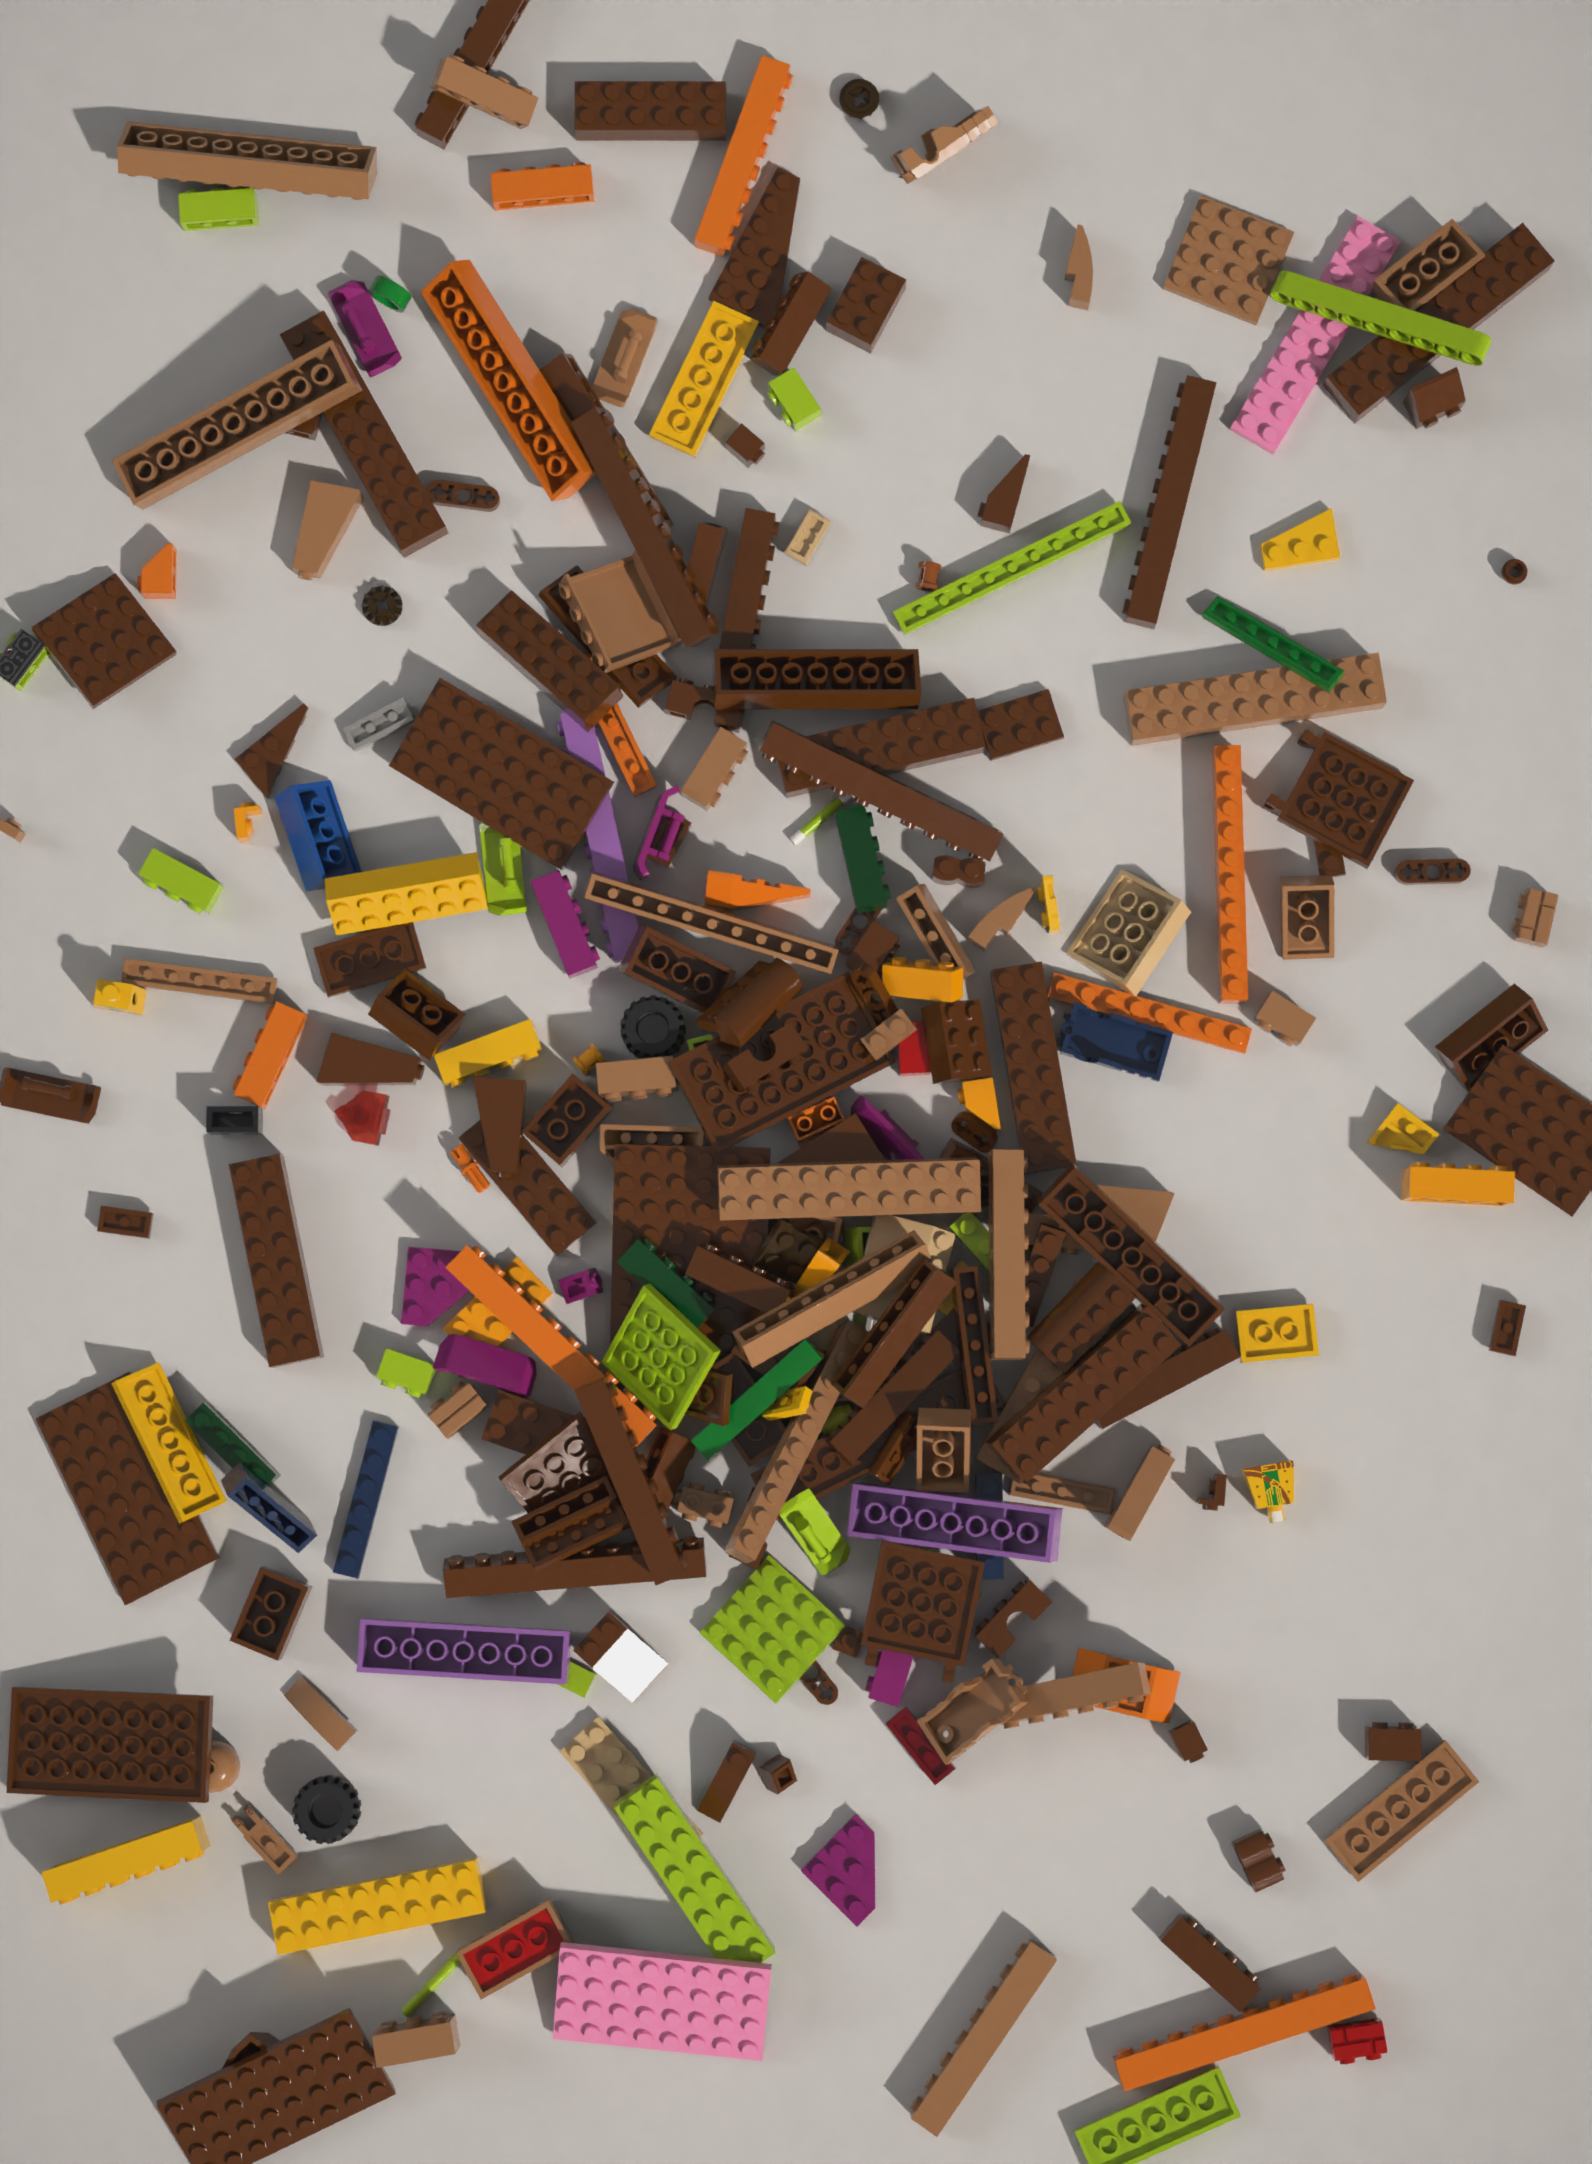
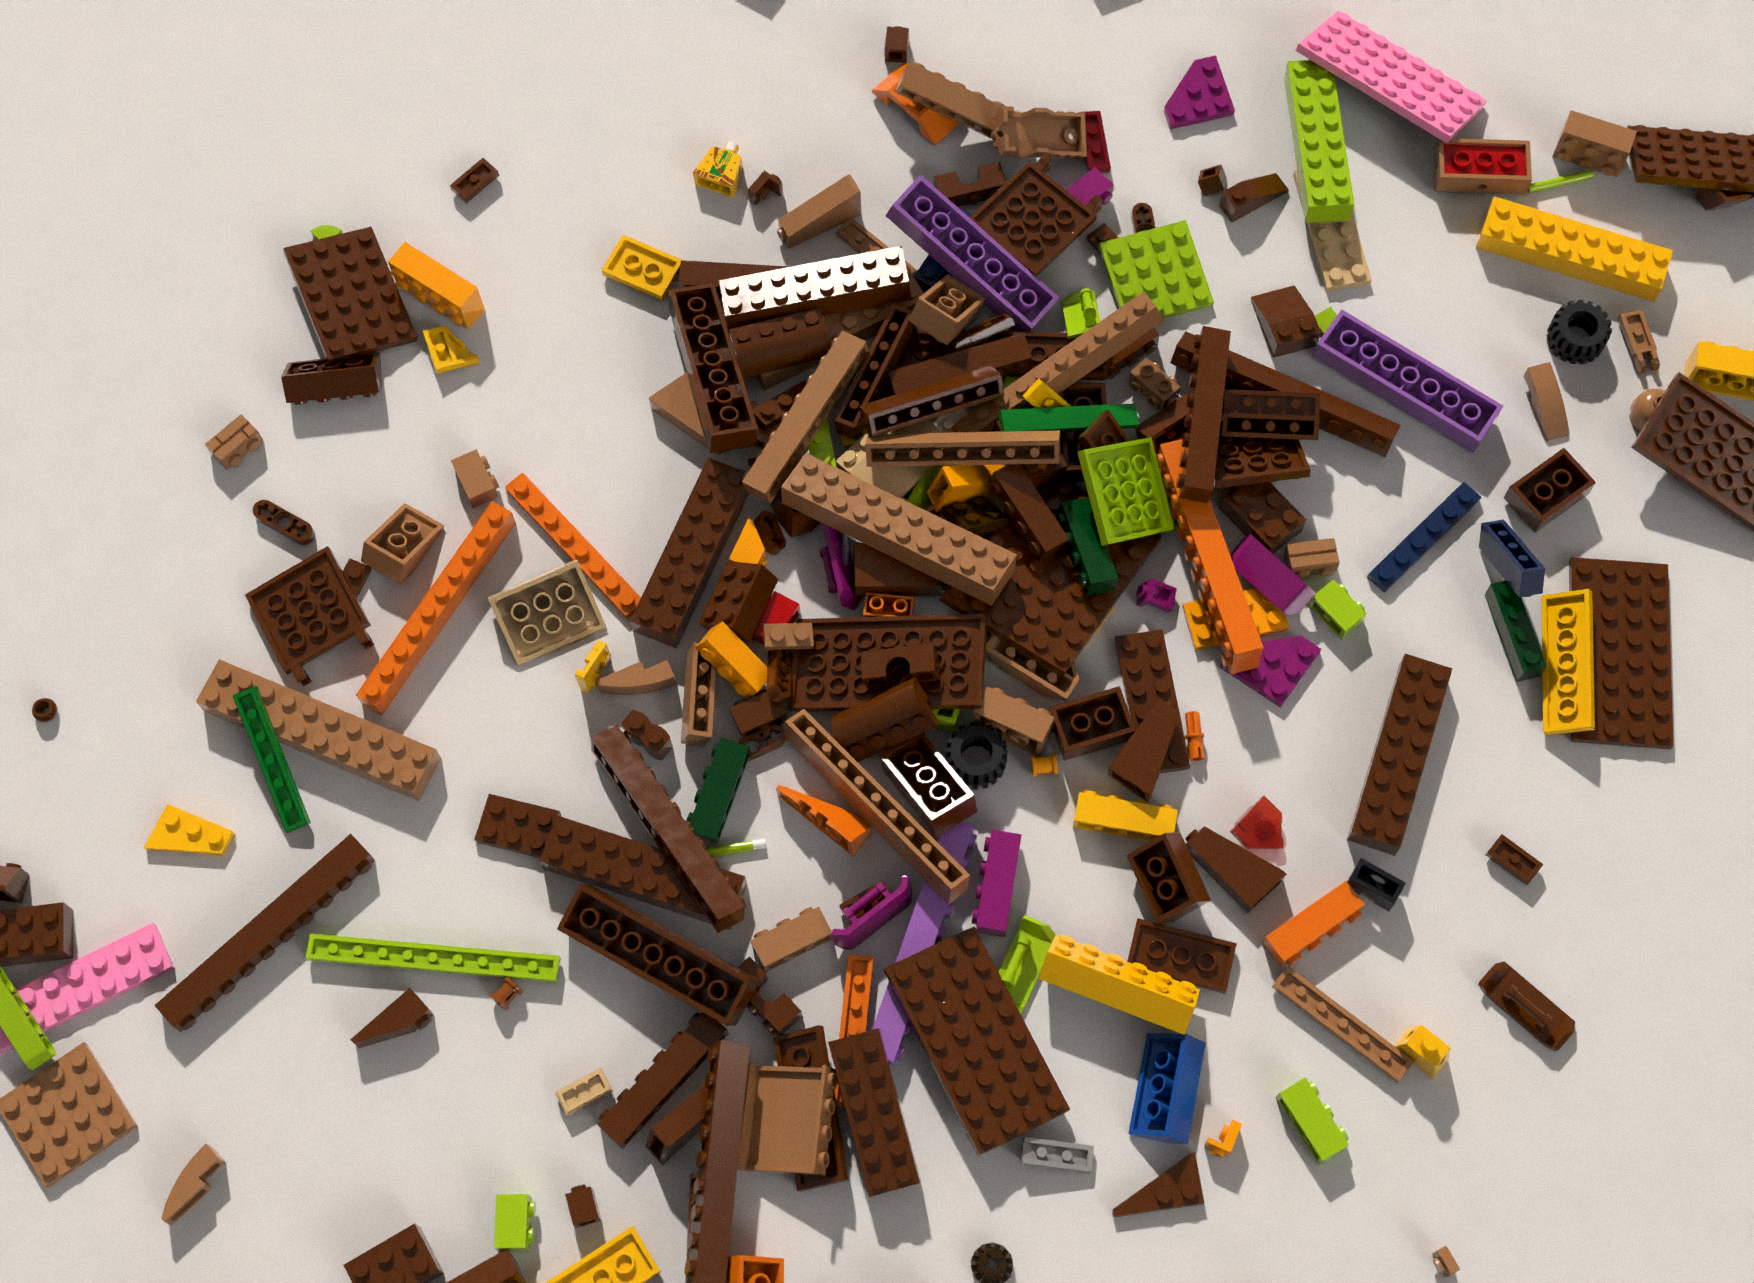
camera: 150 degrees left, 15 degrees down
(1114, 1042) = (616, 535): dark blue piece -> none

